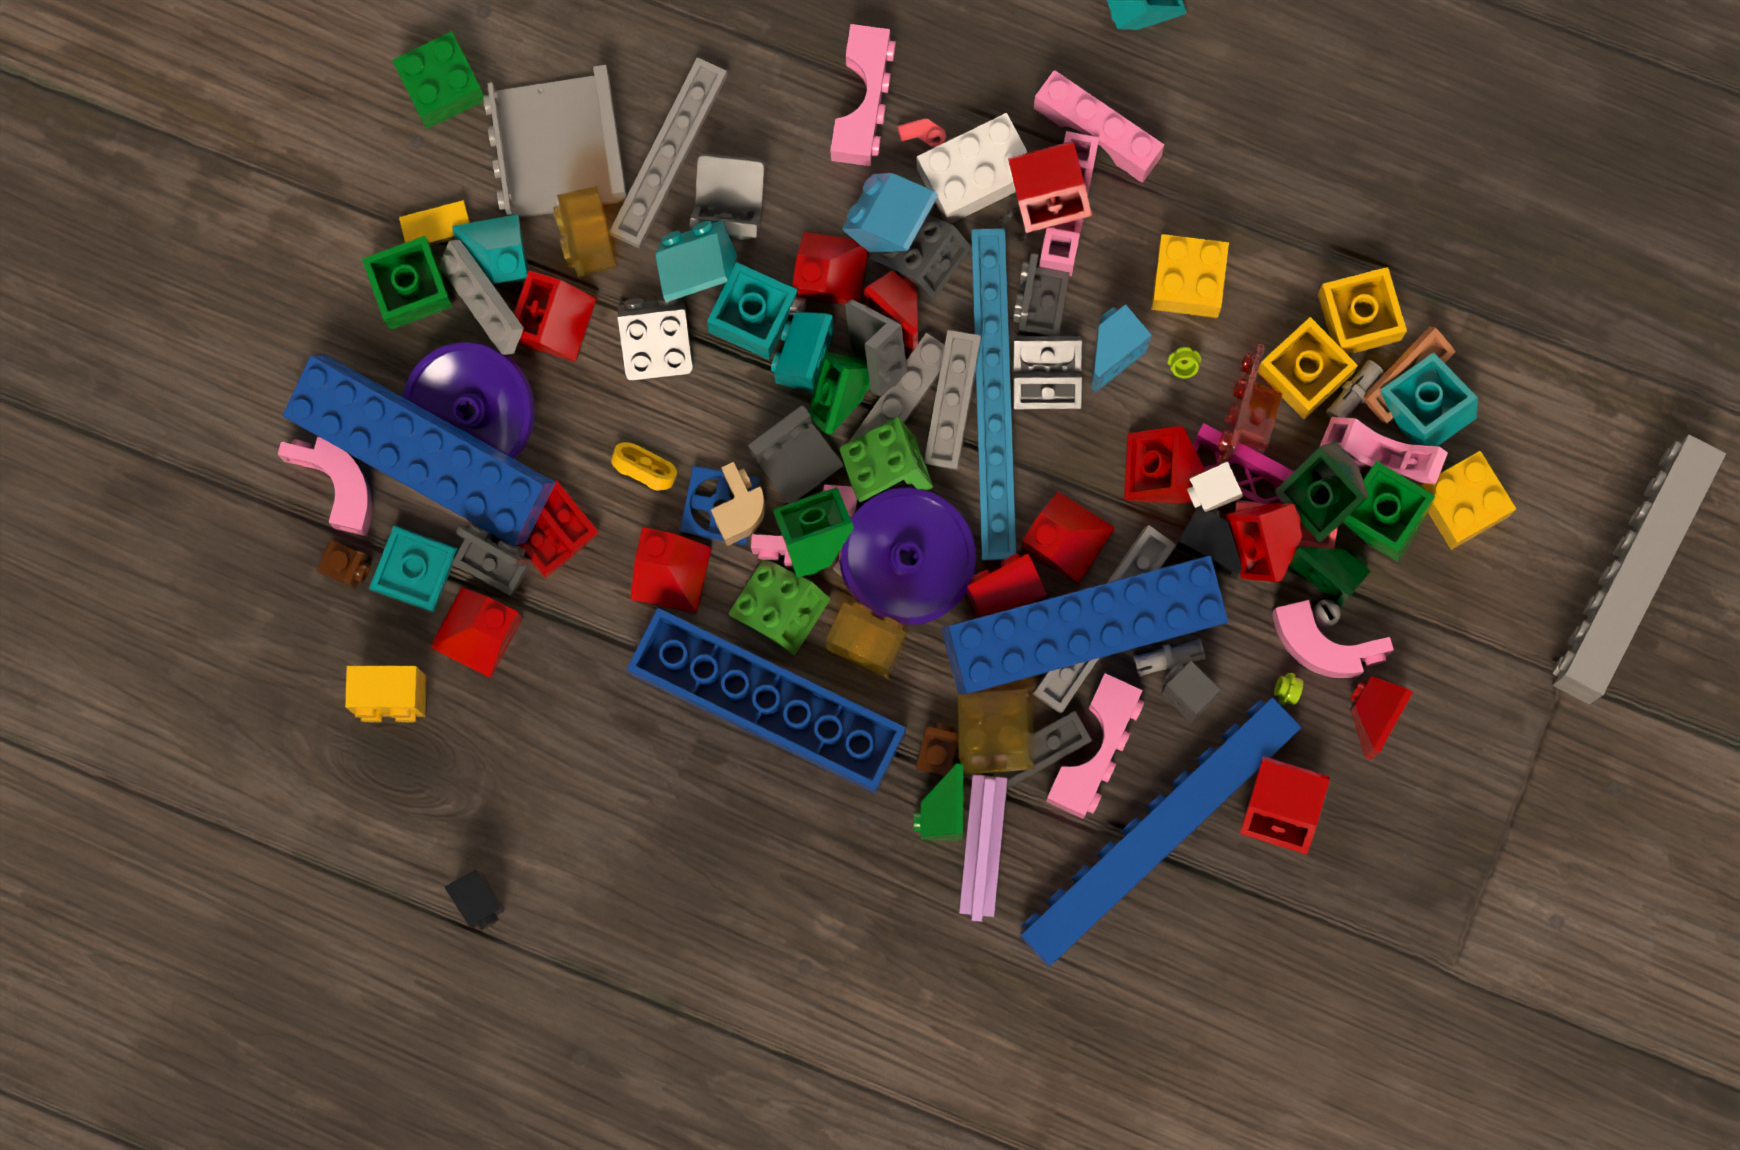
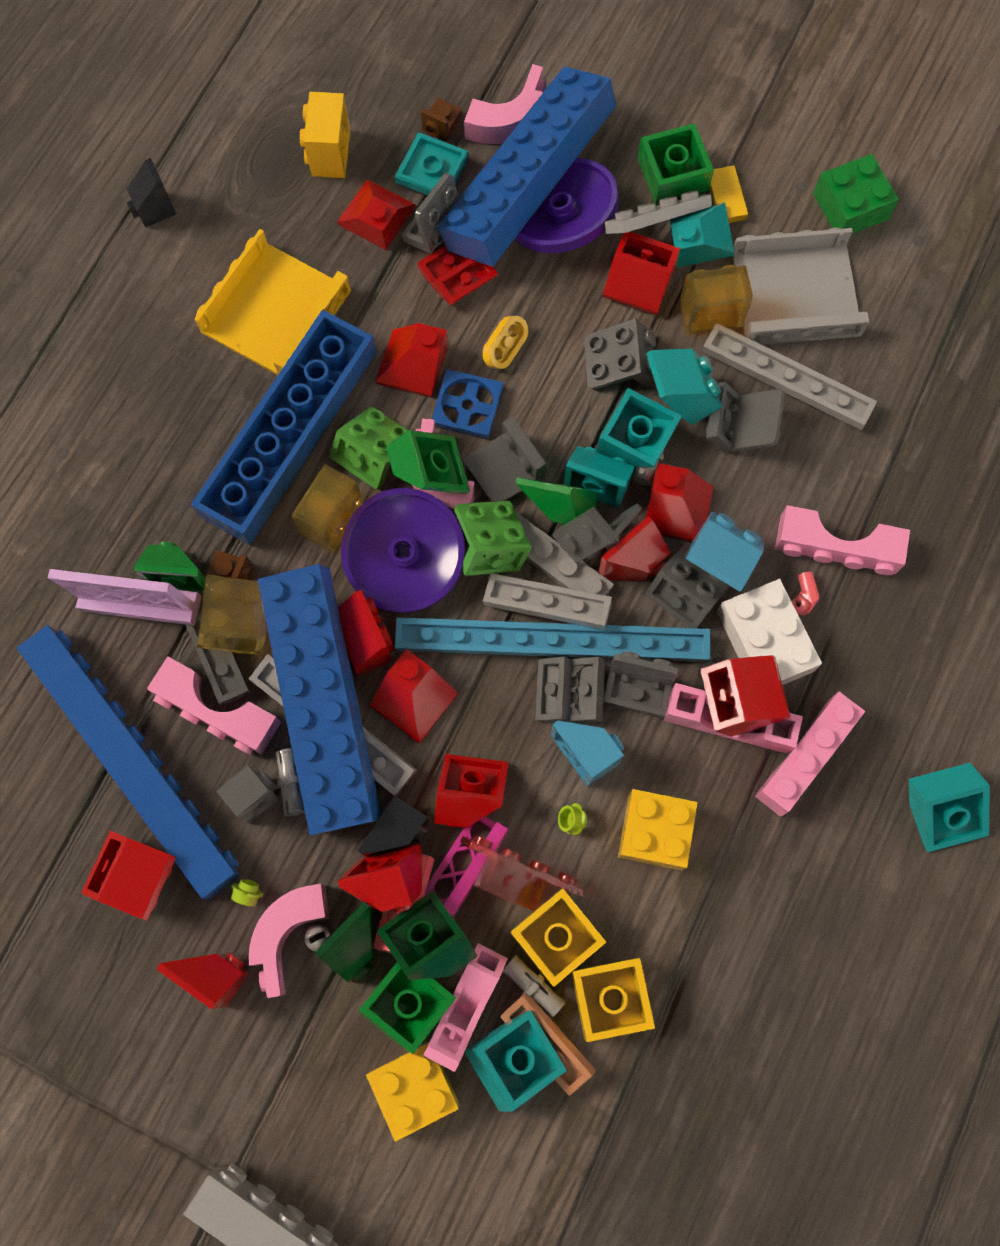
camera: 90 degrees right, 5 degrees down
(609, 739) = (268, 303): none -> yellow panel
(743, 513) = (458, 417): tan brick -> none
(1214, 488) = (439, 833): white slope -> none

